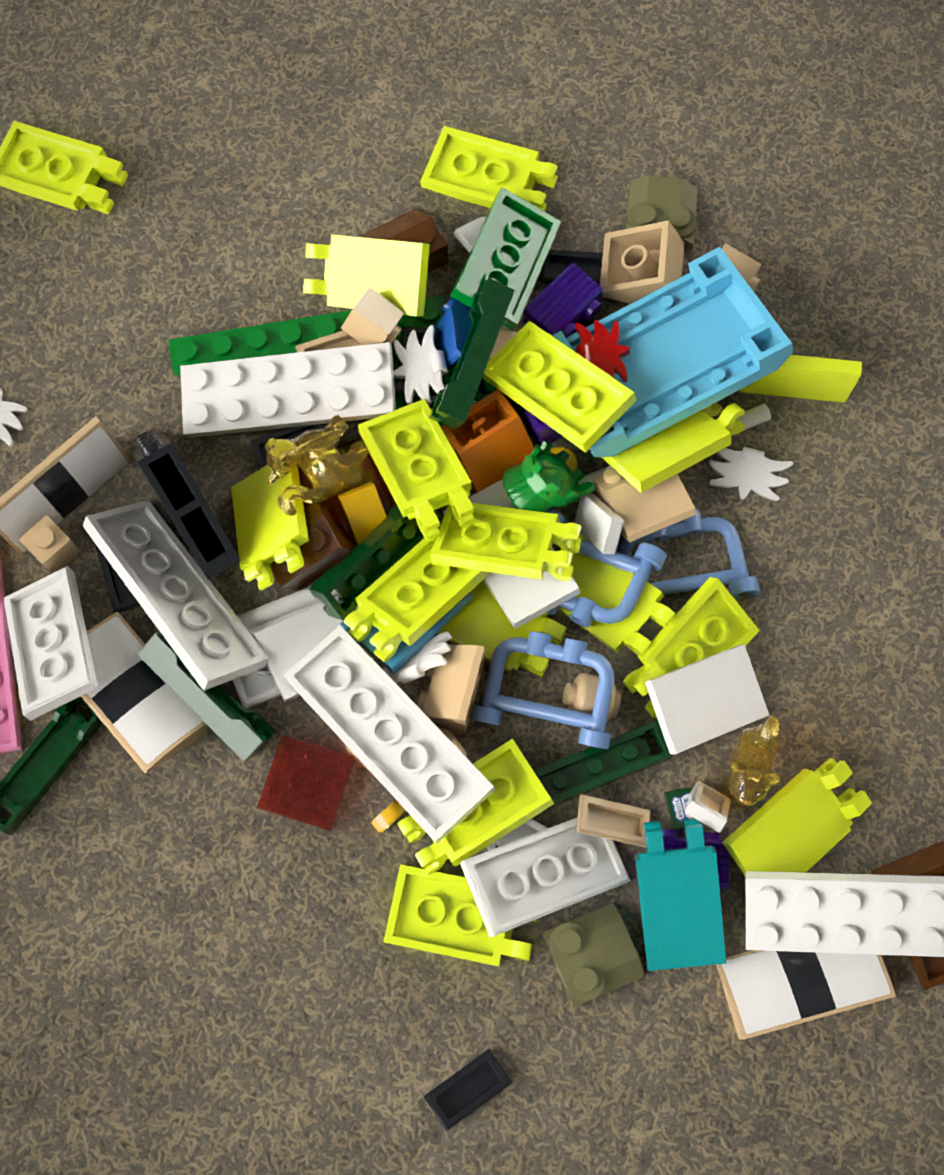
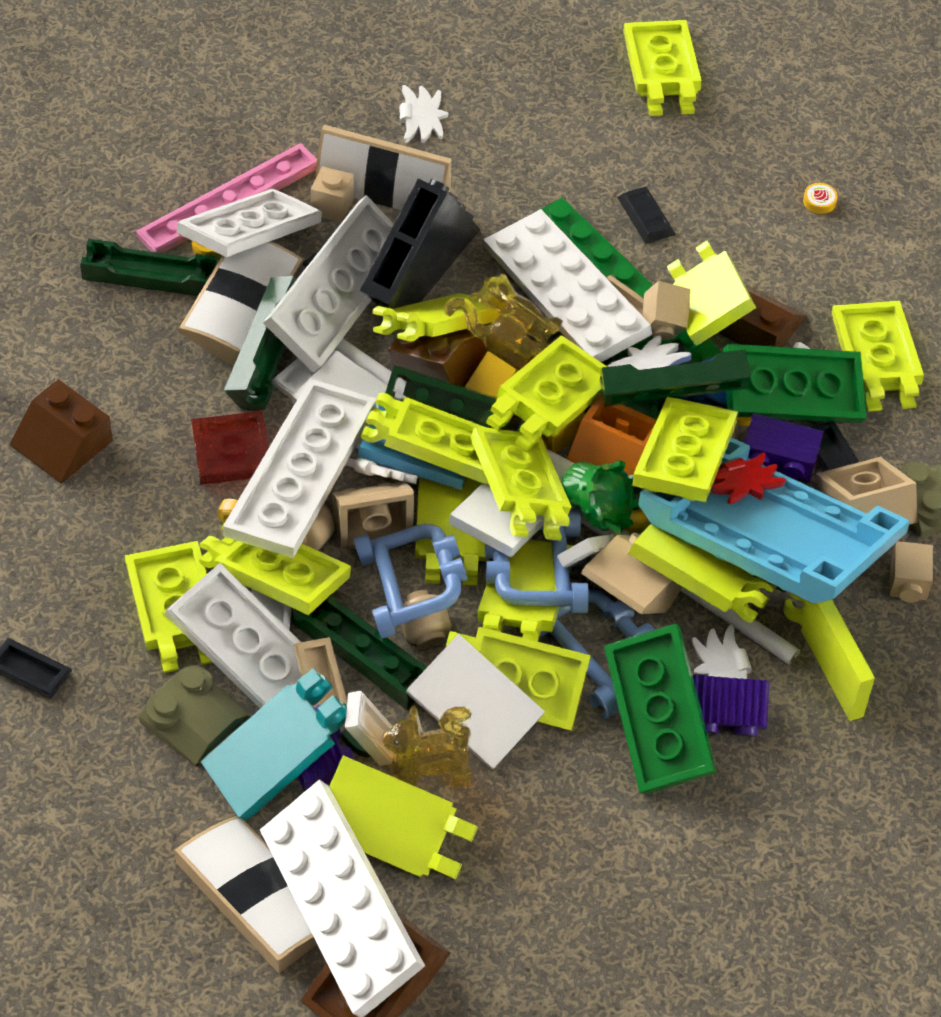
camera: 60 degrees right, 20 degrees down
(205, 942) = (61, 431): none -> reddish brown slope
(227, 279) = (646, 215): none -> black tile
(291, 125) = (820, 198): none -> tile
(789, 548) = (660, 709): none -> green plate
(799, 489) = (733, 703): none -> dark purple brick

